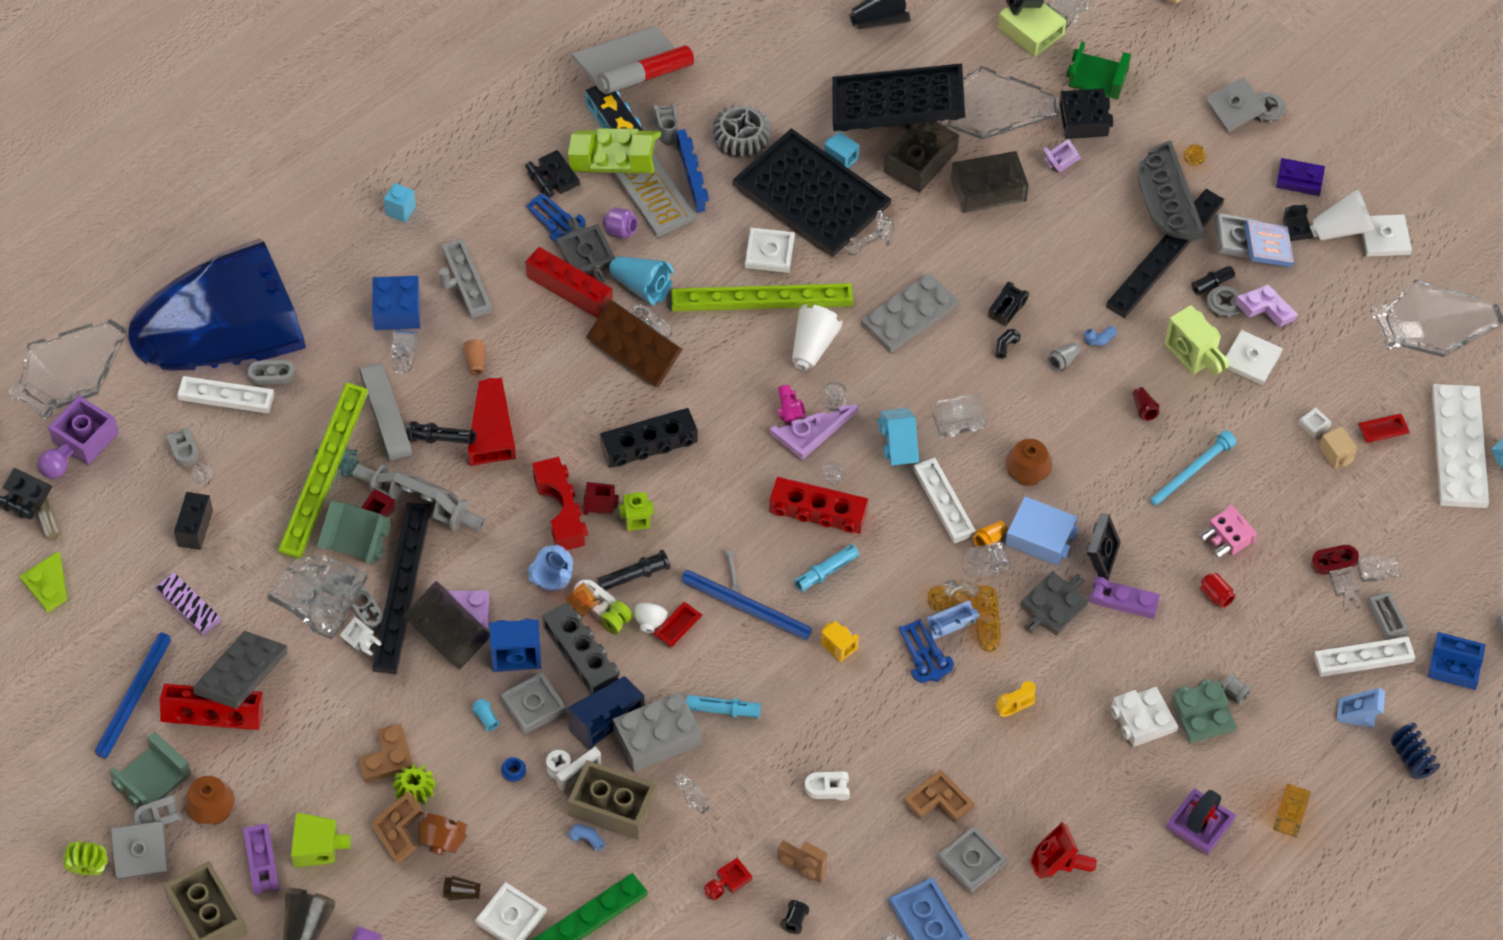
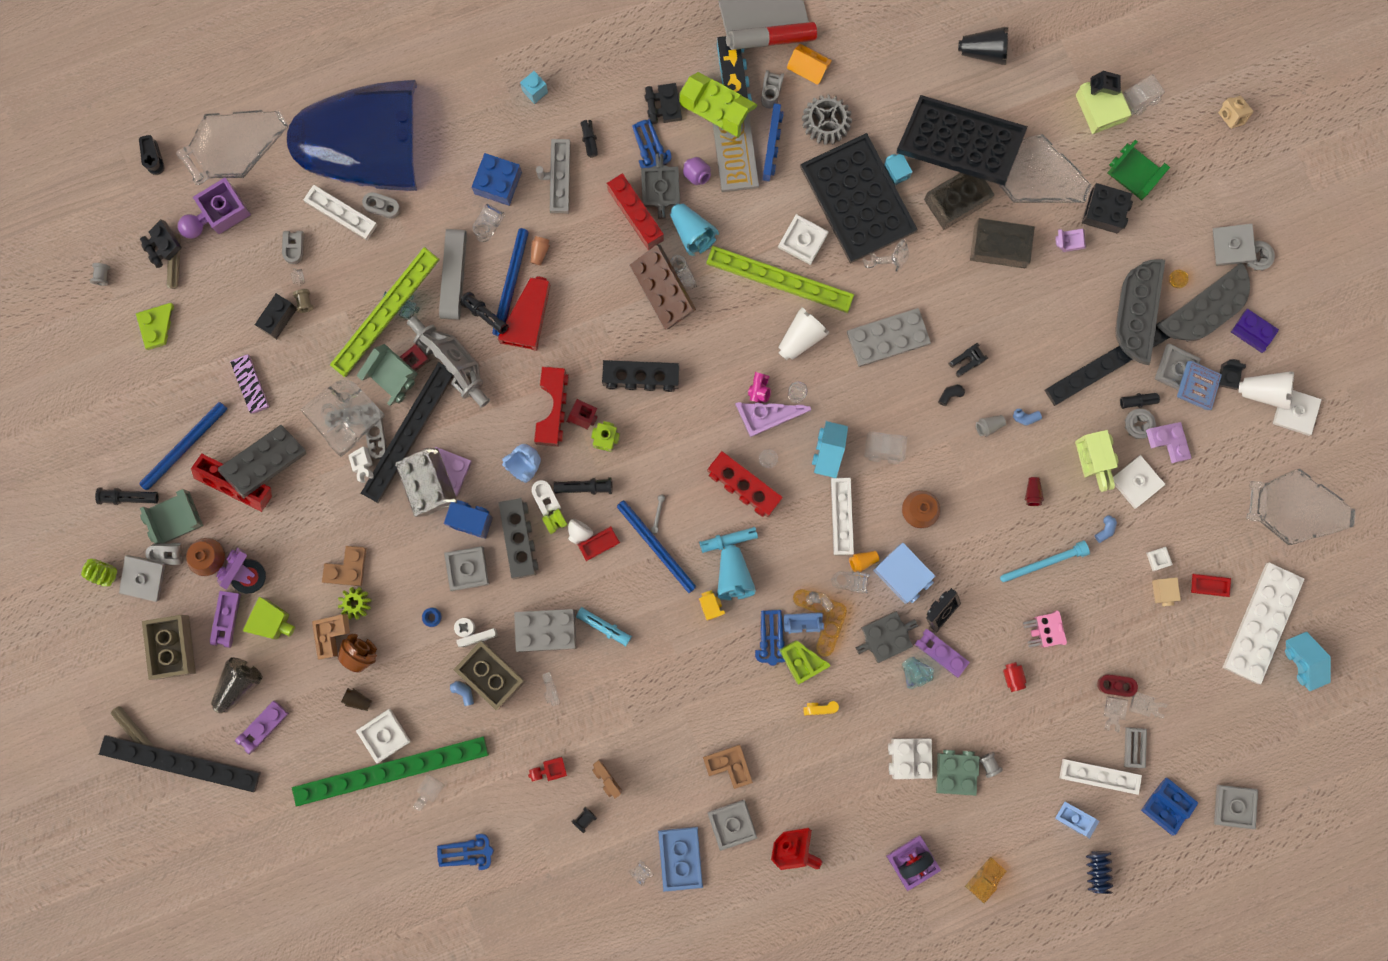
camera: 20 degrees right, 25 degrees up
(73, 774) = (116, 496): none -> black pin
(221, 500) = (303, 301): none -> dark tan bush
(265, 798) = (244, 574): none -> plate
(455, 394) = (512, 275): none -> blue axle
(483, 231) = (589, 138): none -> black axle
(485, 714) = (428, 564): medium azure pin -> none
(582, 599) = (534, 499): clear orange plate -> none
(593, 716) = (514, 598): dark blue wedge -> none
(696, 88) = (808, 63): none -> light orange panel
(818, 785) = (645, 721): white plate -> none
(852, 599) = (734, 575): none -> medium azure cone
(970, 659) = (802, 661): none -> lime wing
(1106, 623) = (917, 673): none -> clear light blue rock
(1240, 169) = (1210, 307): none -> dark grey plate
(1244, 406) = (1109, 530): none -> medium blue arm

